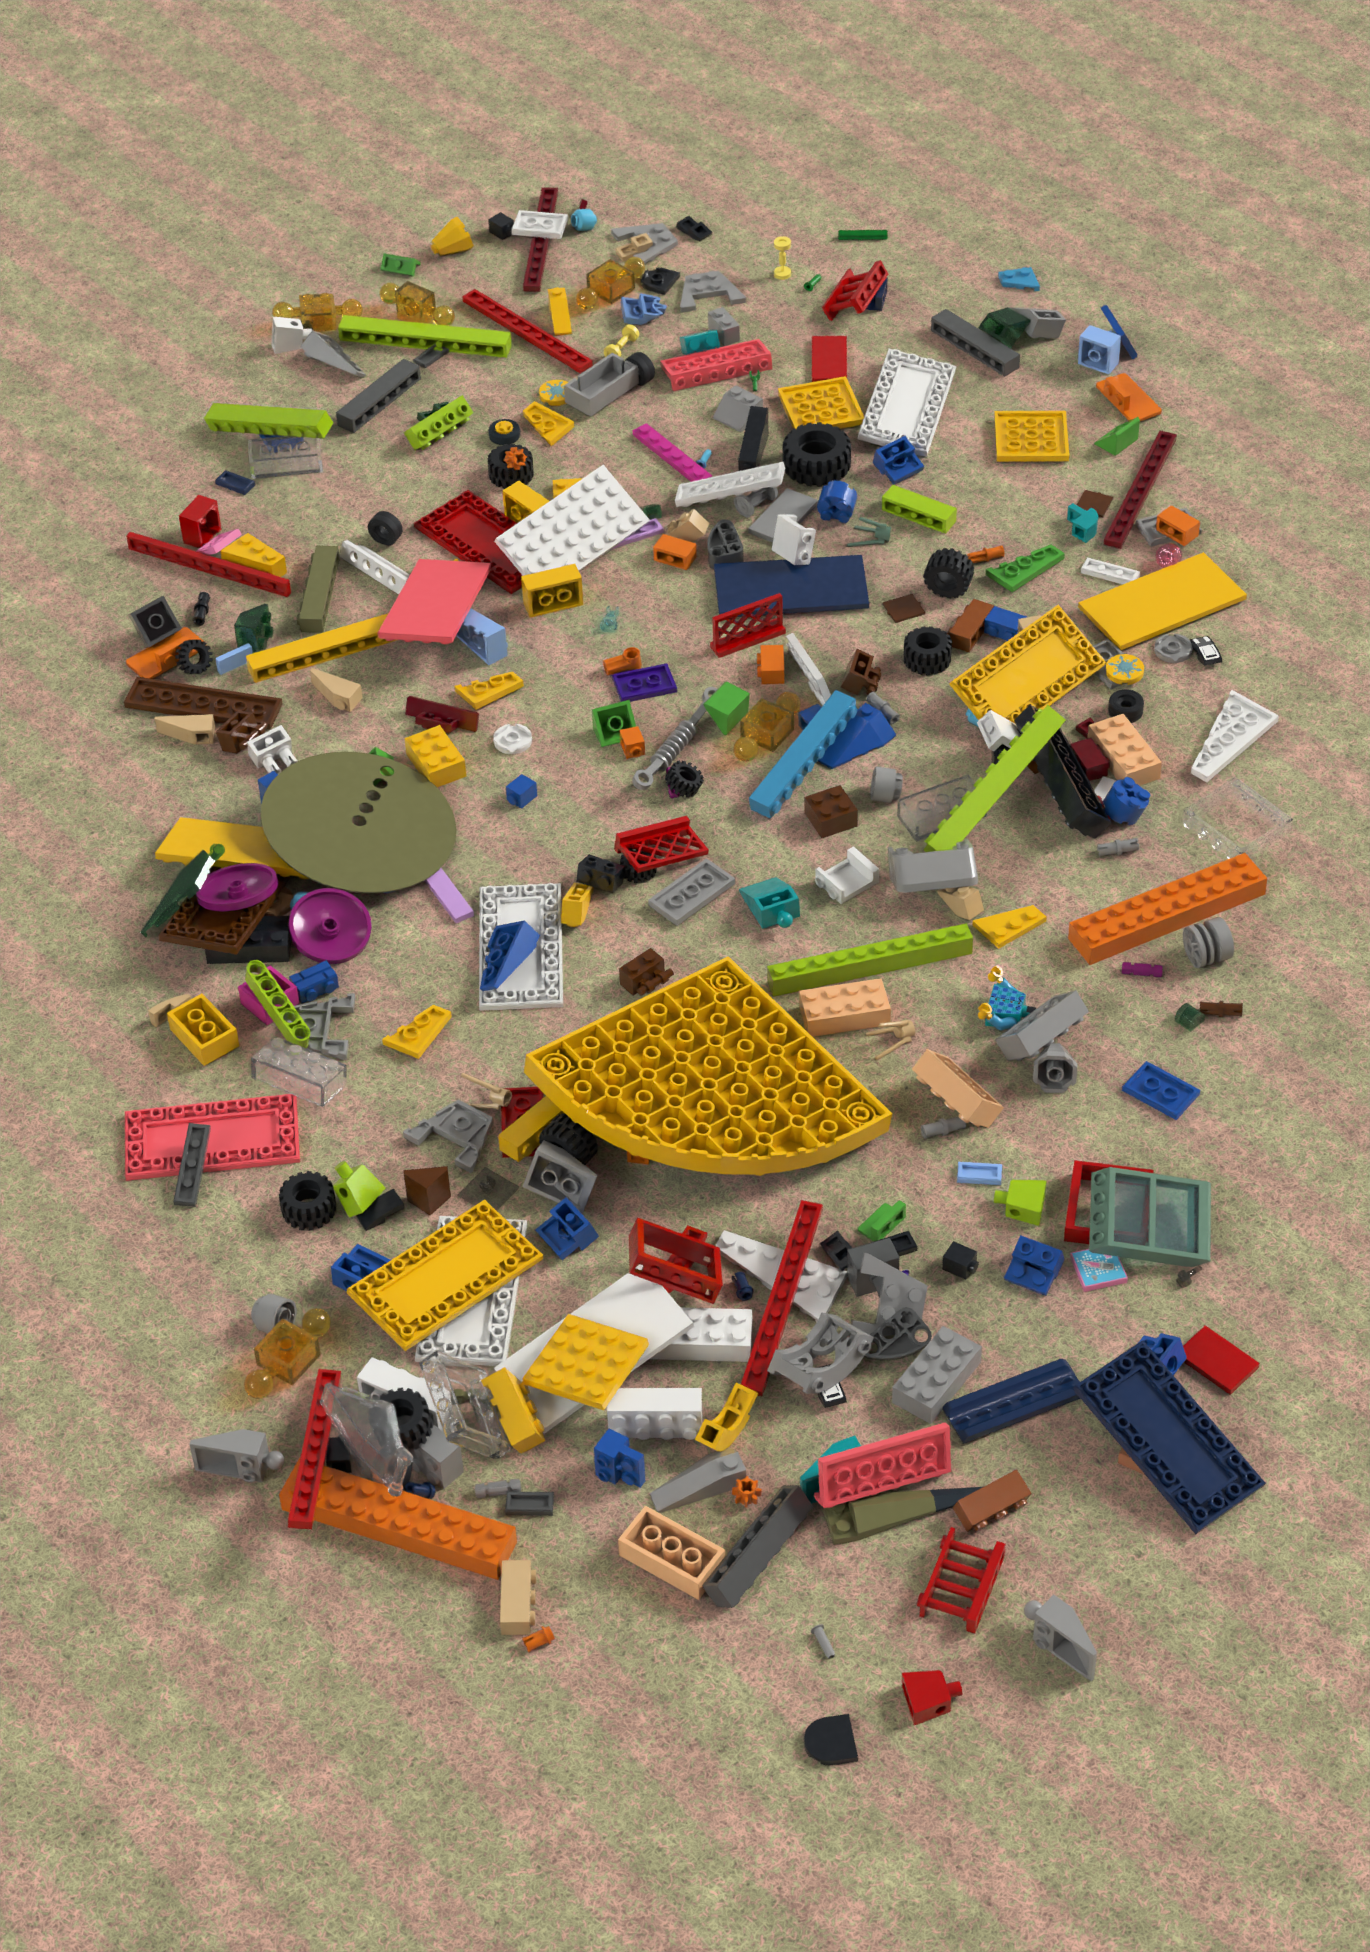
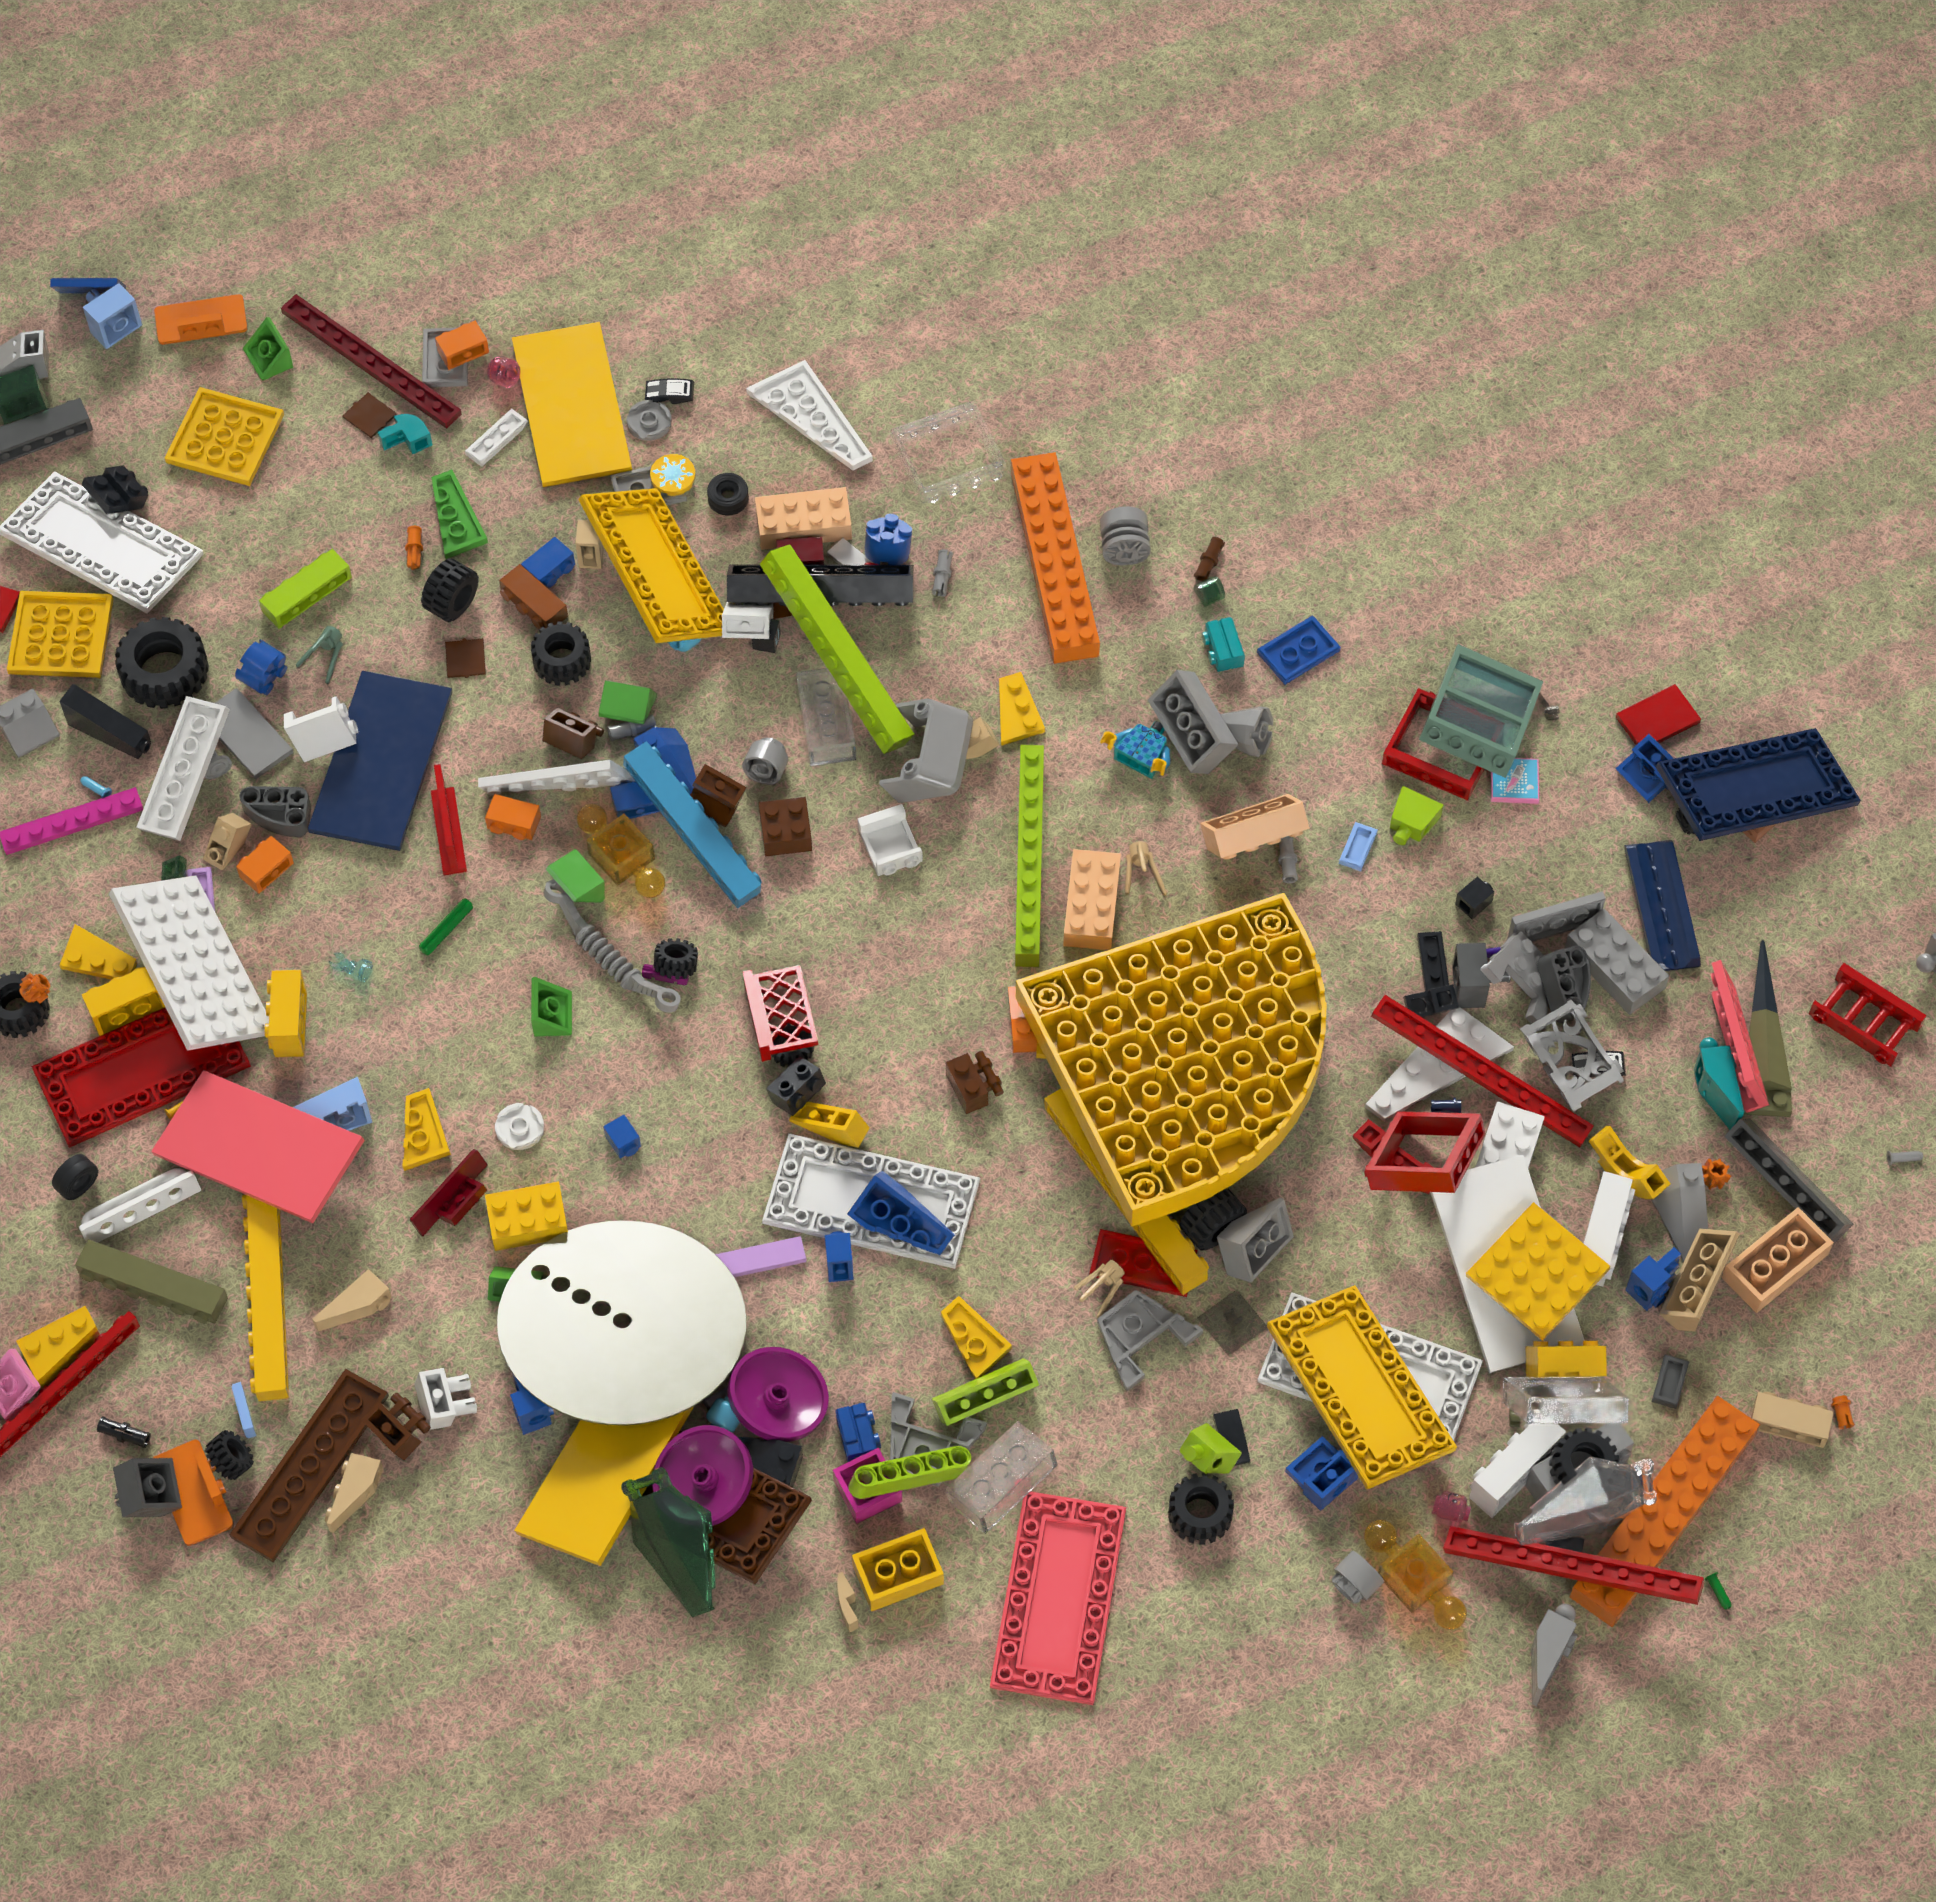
camera: 75 degrees left, 15 degrees up
(192, 1165) = (1107, 1622): dark grey tile -> none
(254, 628) = (213, 1372): clear green slope -> none
(335, 1578) = (1719, 1590): none -> green piece
(352, 1364) = (1451, 1508): none -> clear pink head
(369, 1044) = (985, 1391): none -> lime brick
(427, 1187) = (1233, 1378): reddish brown slope -> none
(456, 929) = (839, 1256): none -> blue brick
(497, 1488) = (1644, 1406): light grey axle -> none
(578, 1230) = (1321, 1244): blue brick -> none
(627, 661) = (441, 973): orange piece -> none
(627, 1493) = (1698, 1278): none -> tan slope
(632, 742) = (587, 998): orange brick -> none
(644, 683) = (481, 960): dark purple tile -> none
(665, 657) = (446, 926): none -> green axle
(691, 892) = (855, 1002): light grey plate -> none
(772, 902) = (899, 925): teal slope -> none
(831, 755) = (717, 794): none -> reddish brown panel
(883, 1221) = (1397, 952): bright green panel -> none
(897, 460) = (210, 583): blue brick -> none
(901, 695) = (626, 702): none -> bright green slope
(952, 395) = (116, 490): none -> black plate
(955, 1313) = (1557, 918): none -> light grey tile
(992, 1501) = (1784, 960): dark orange brick -> none
(1034, 1265) = (1495, 826): blue brick -> none
(1082, 728) = (743, 542): dark red tile -> none
(1137, 1036) = (1224, 644): none -> teal brick
(1142, 969) = (1126, 610): magenta axle -> none

